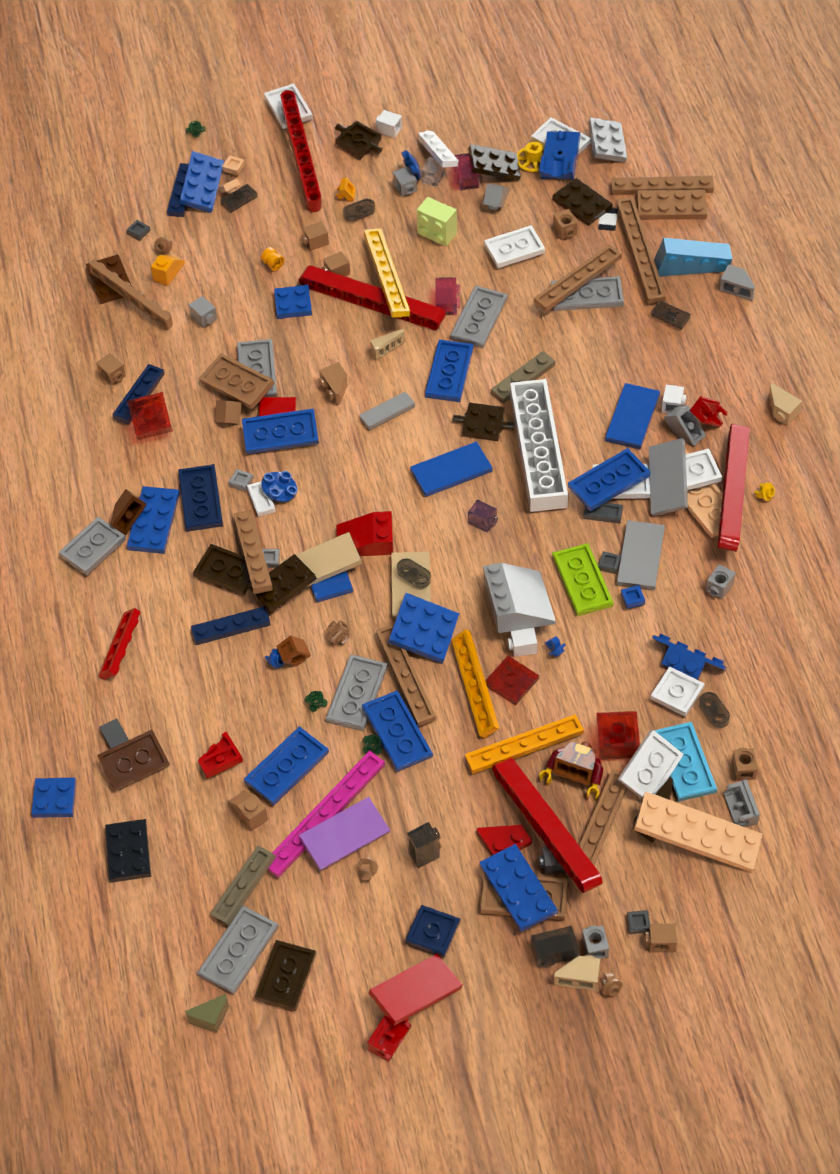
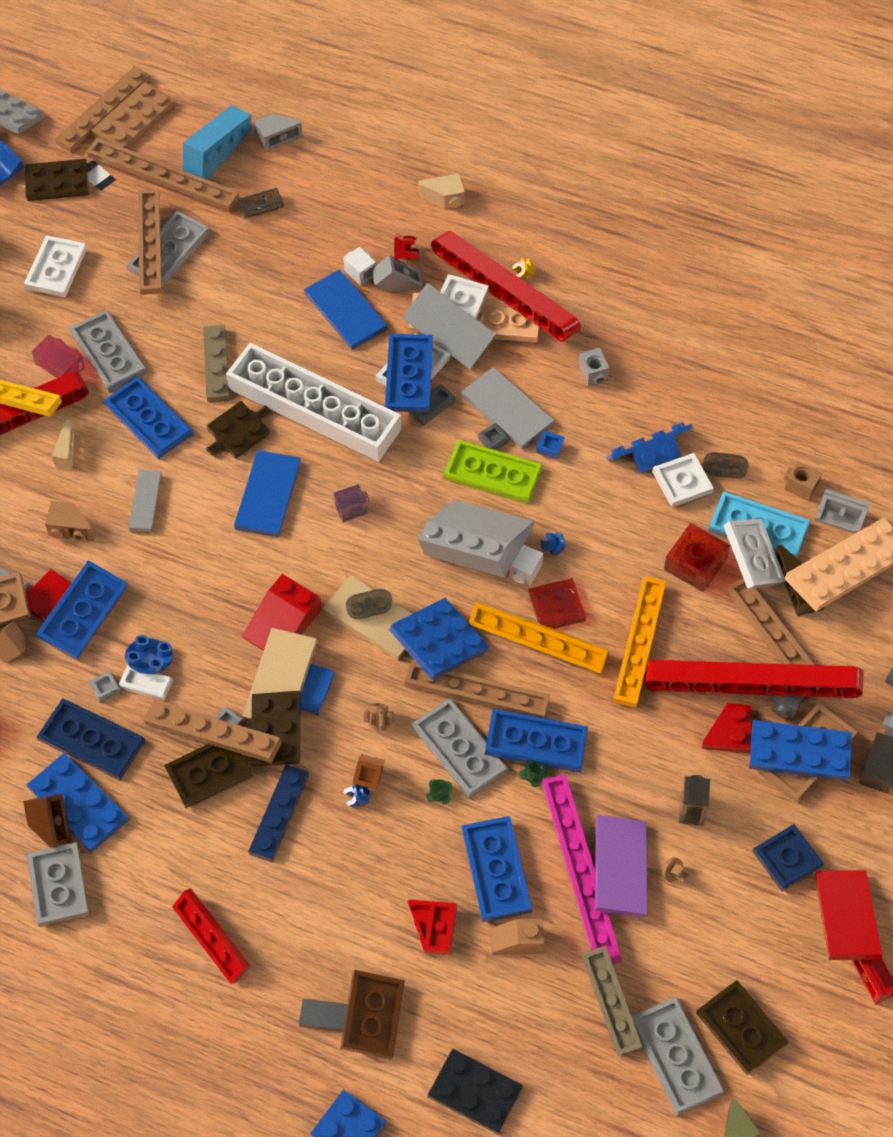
camera: 55 degrees left, 5 degrees up
(565, 224) = (72, 209): medium nougat brick -> none
(576, 763) = (702, 610): torso -> none

